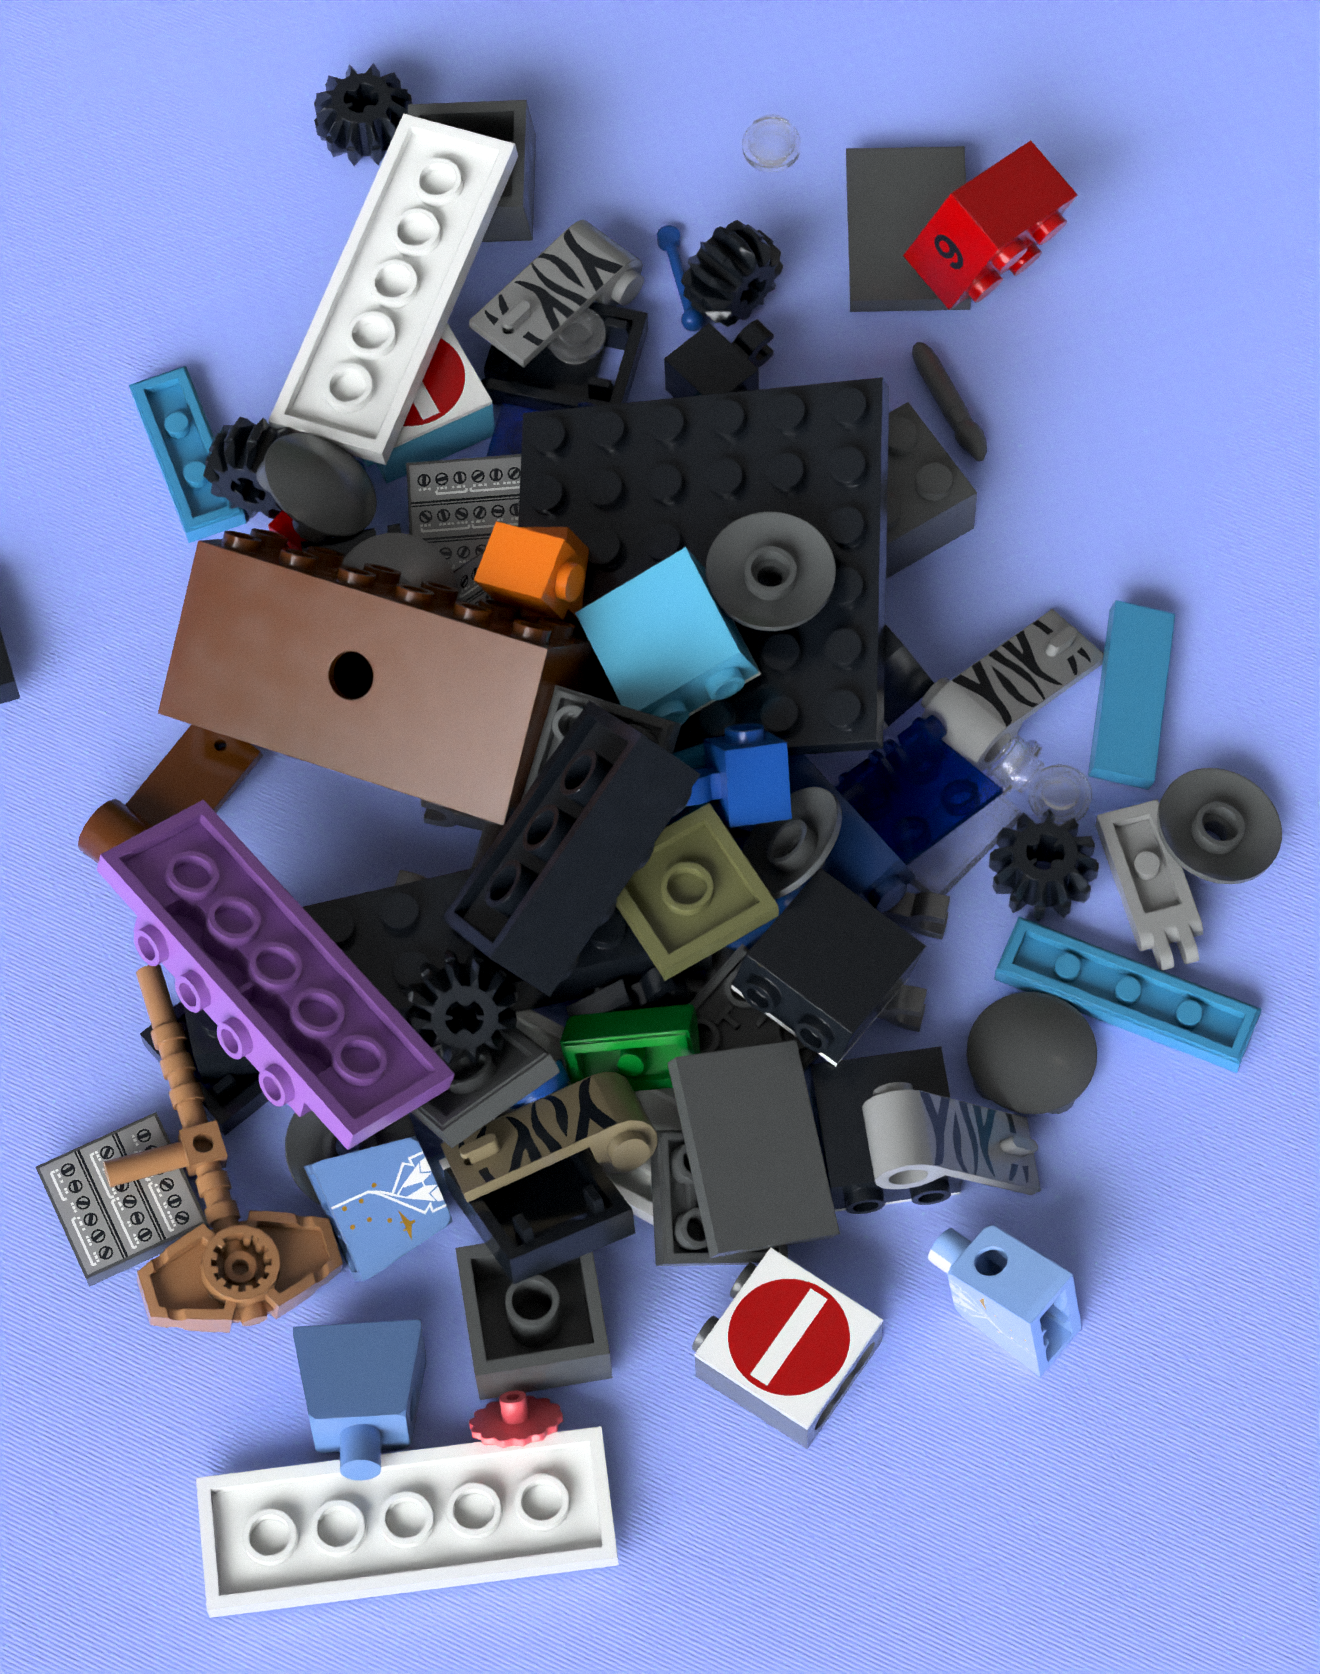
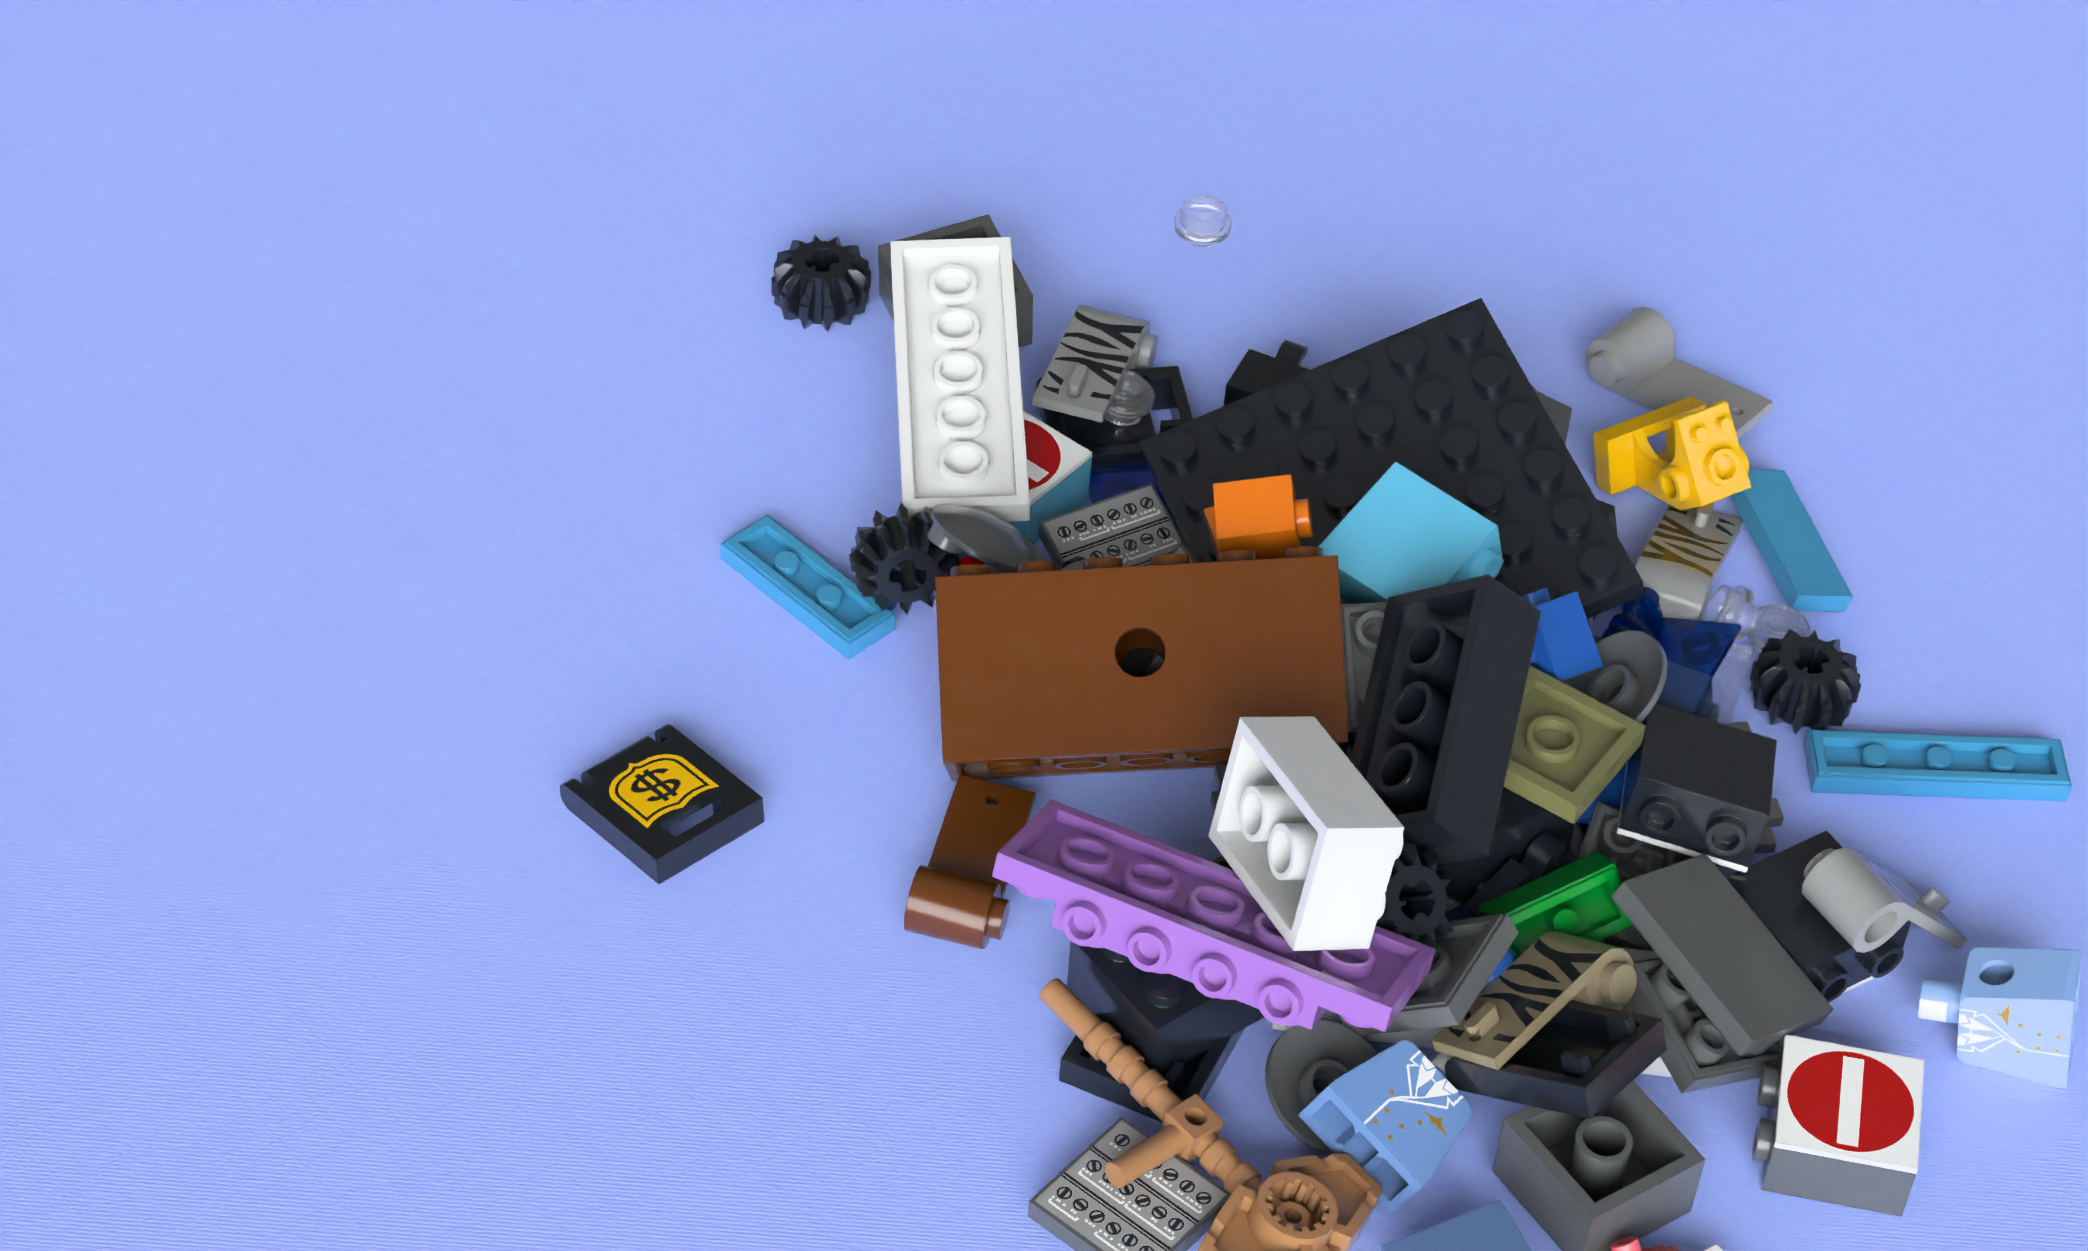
camera: 30 degrees left, 20 degrees down
(372, 931) = (1305, 833): none -> white brick
(669, 240) = (1214, 366): blue hinge -> none
(732, 273) = (1240, 310): black gear -> none
(776, 547) = (1480, 463): dark grey dish -> none
(888, 205) = (1361, 256): dark grey tile -> none
(991, 227) = (1456, 215): red brick -> none
(1031, 1053) = (1893, 829): dark grey dish -> none
(1063, 588) = (1699, 458): none -> yellow tile
(1112, 453) = (1640, 364): none -> light grey door
(1150, 883) = (1907, 672): light grey hinge -> none
(1233, 811) = (1934, 609): dark grey dish -> none

